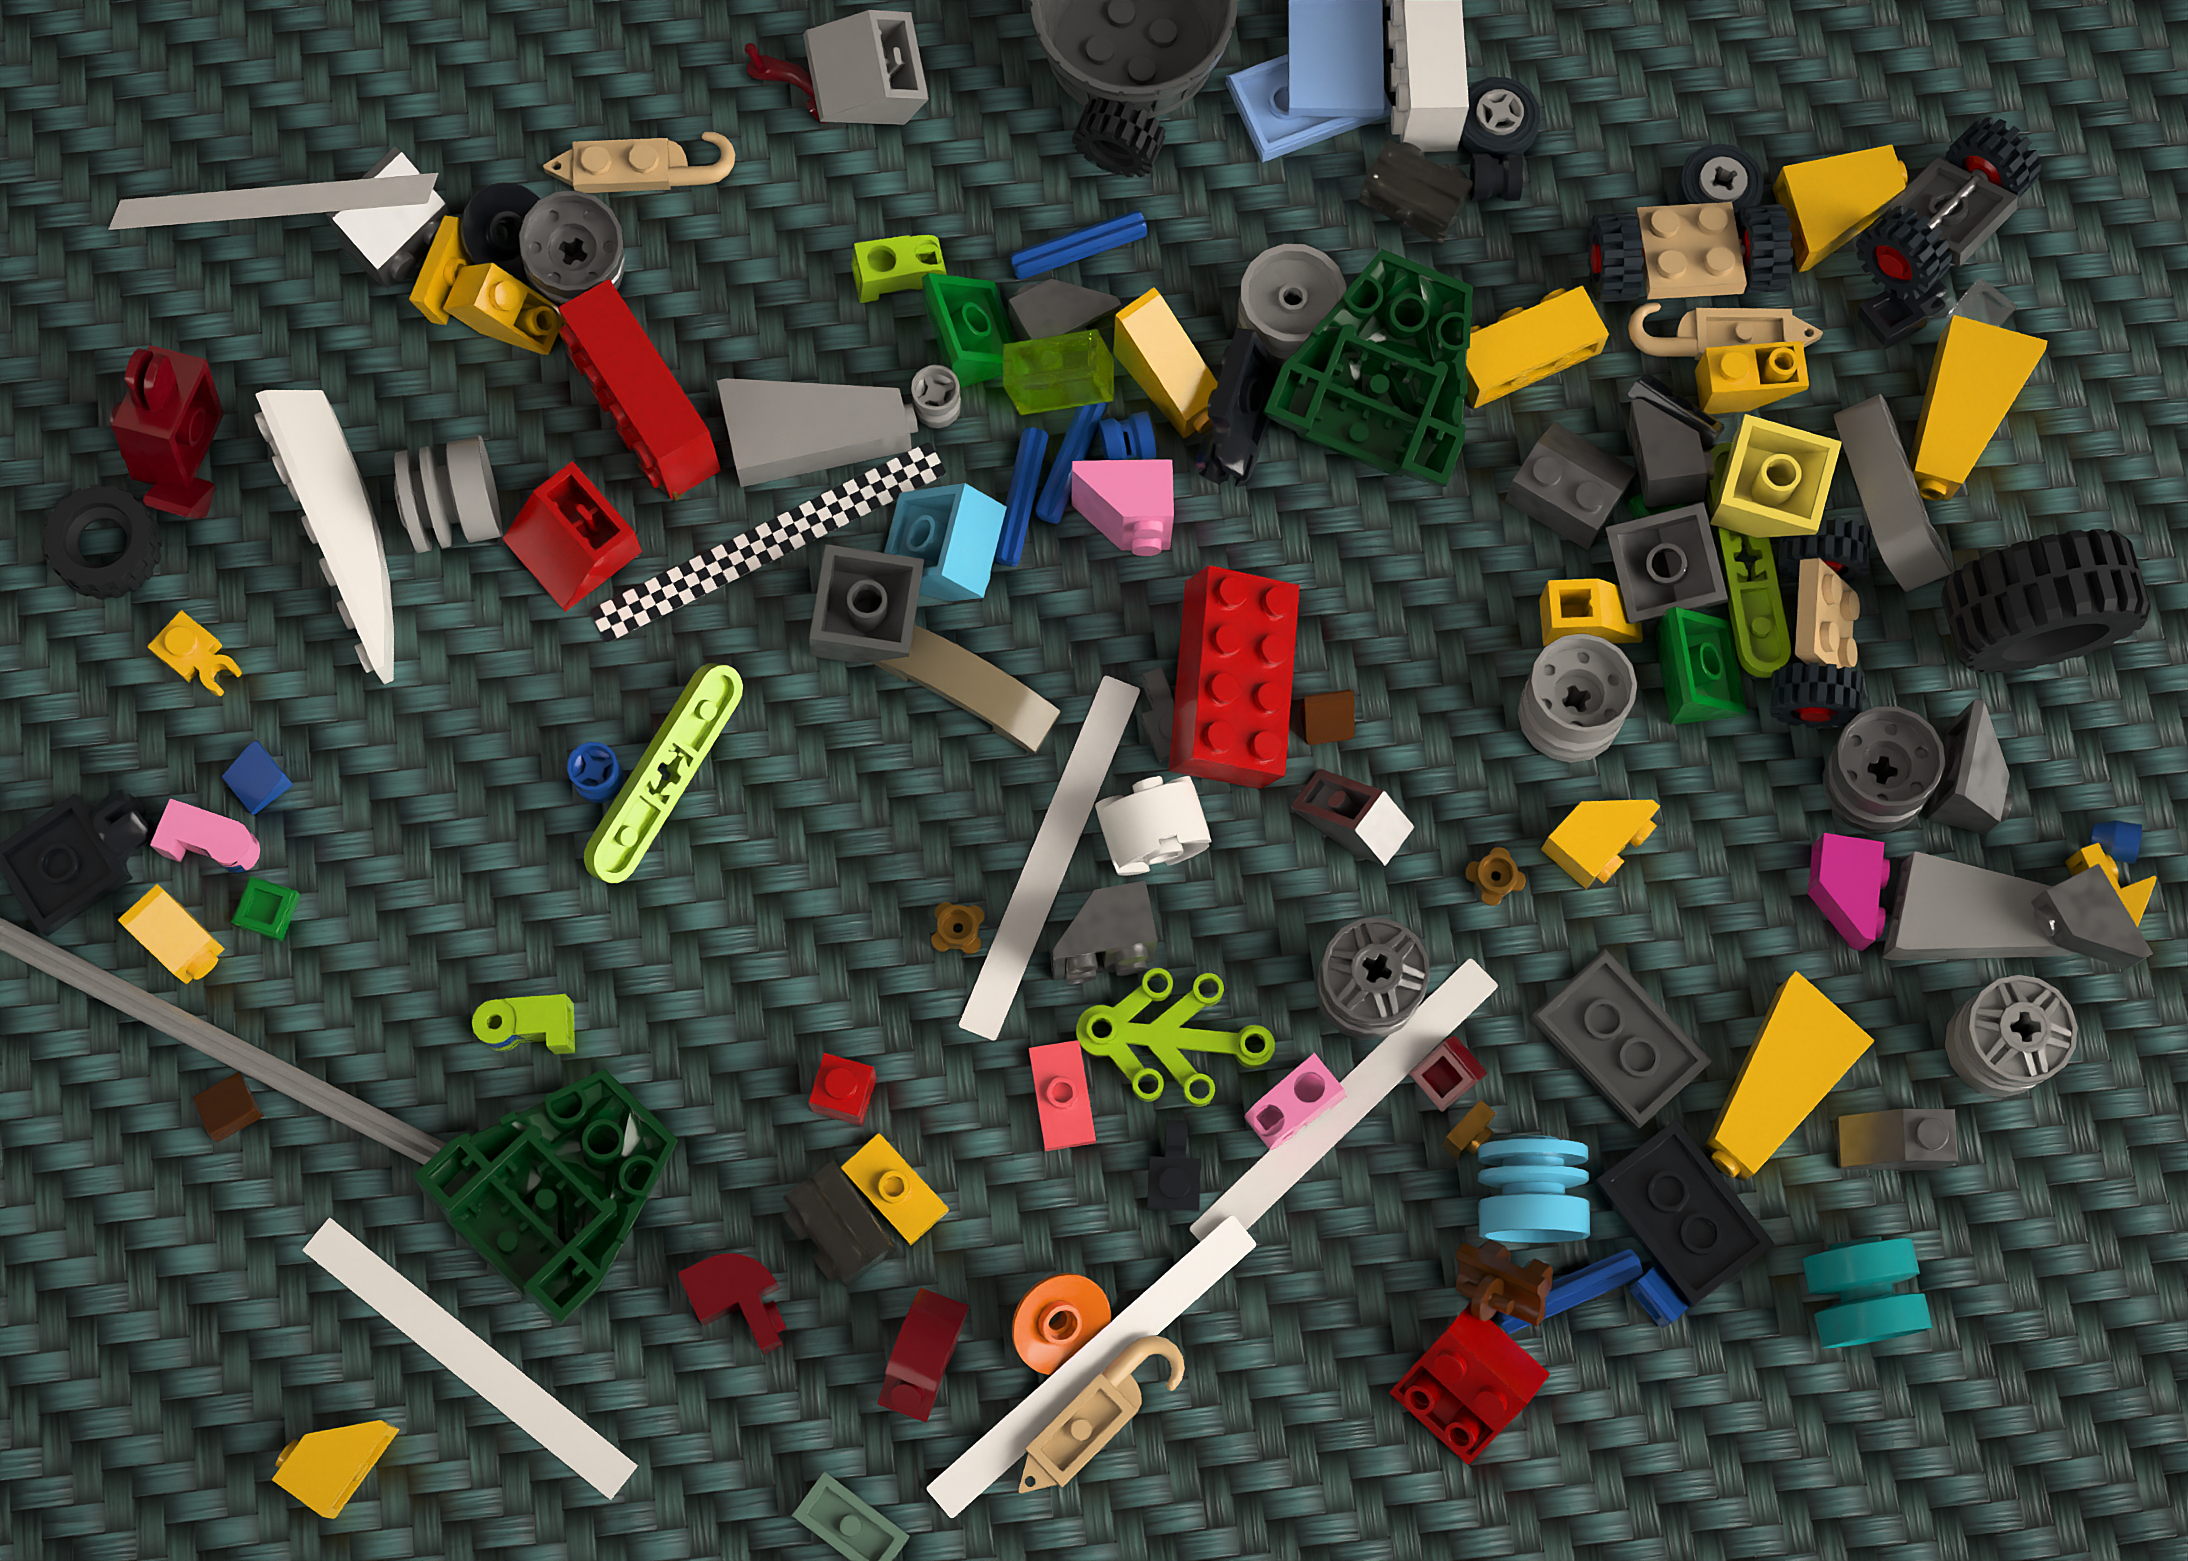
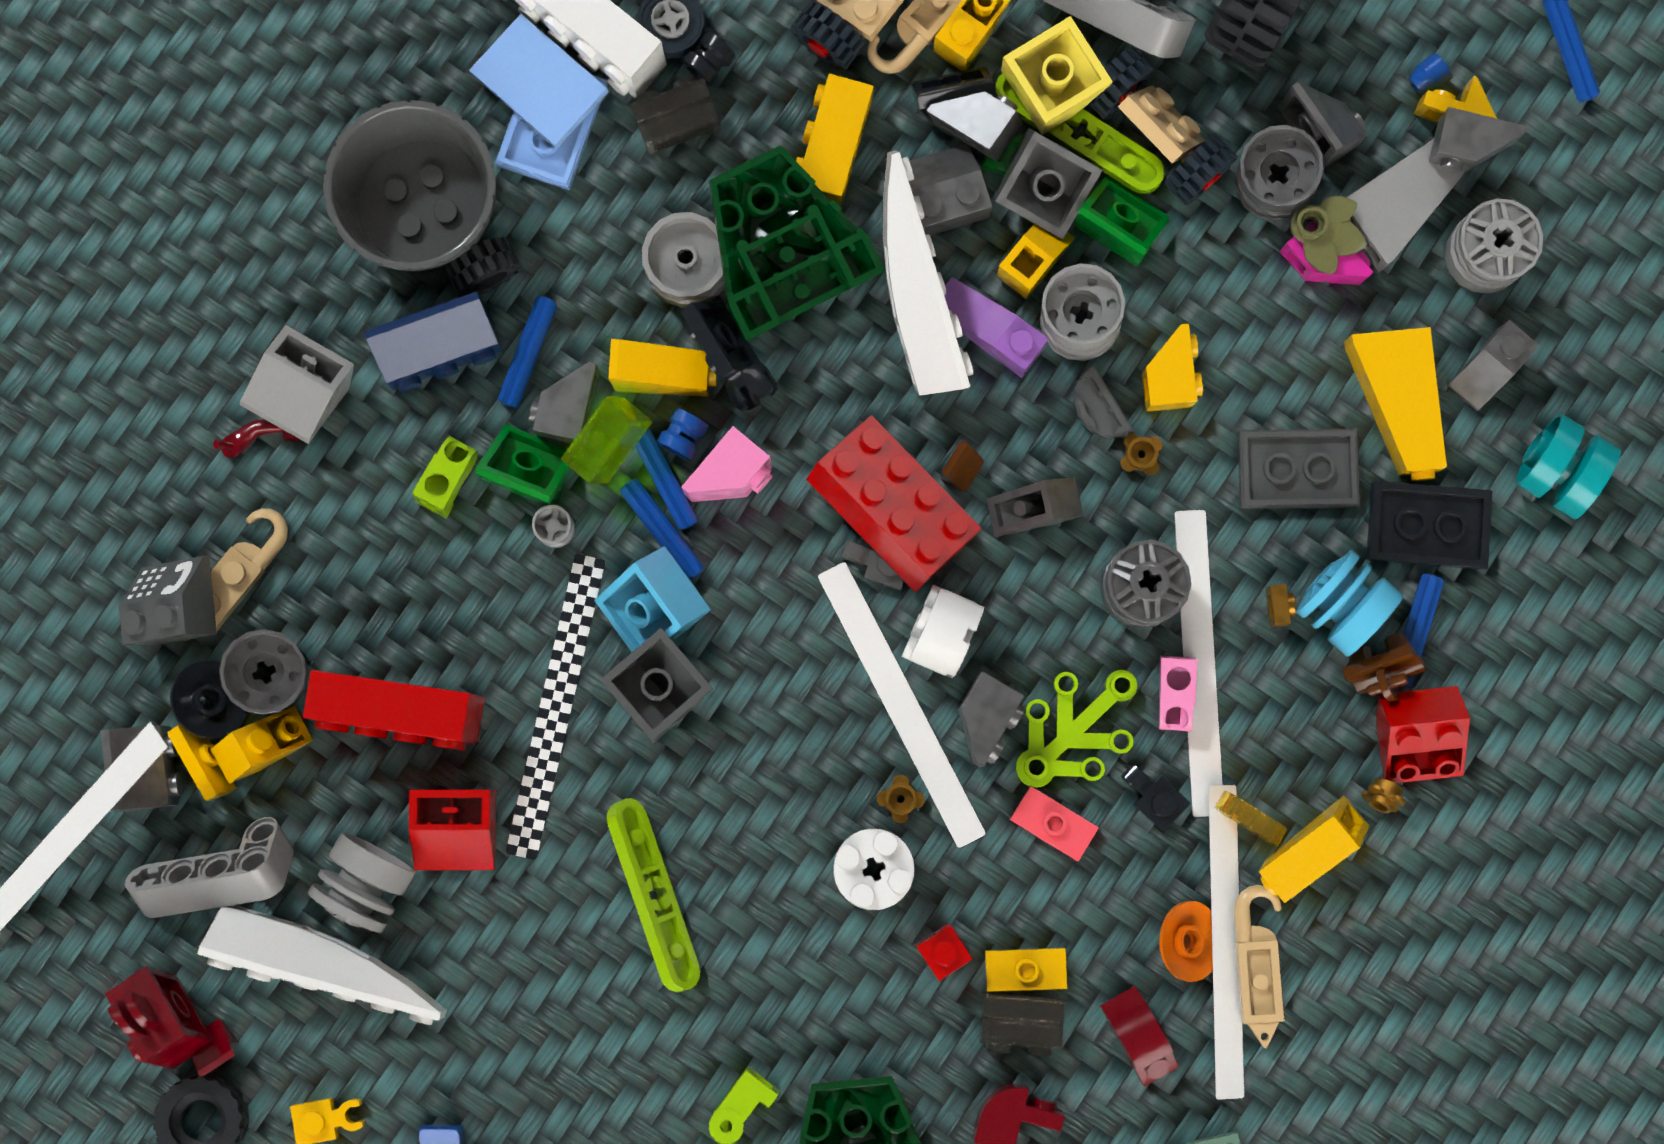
camera: 45 degrees left, 10 degrees up
(345, 367) = (216, 879): none -> light grey beam
(563, 125) = (169, 603): none -> dark grey slope
(591, 762) = (612, 935): blue wheel -> none
(810, 427) = (505, 621): light grey slope -> none
(856, 927) = (895, 877): none -> white brick
(976, 687) = (763, 661): dark tan slope -> none
(1013, 150) = (434, 342): none -> slope
(1235, 1280) = (1250, 818): none -> clear yellow beam
(1260, 1369) = (1314, 850): none -> yellow slope
(1376, 1397) = (1384, 795): none -> pearl gold plate
(1448, 1073) = (1232, 585): dark red slope -> none
(1455, 524) = (918, 291): none -> white wedge
(1485, 634) = (995, 328): none -> medium lavender slope
(1502, 796) = (1097, 406): none -> dark grey plate
(1658, 1297) = (1464, 582): blue slope -> none
(1871, 868) = (1333, 232): none -> olive plate

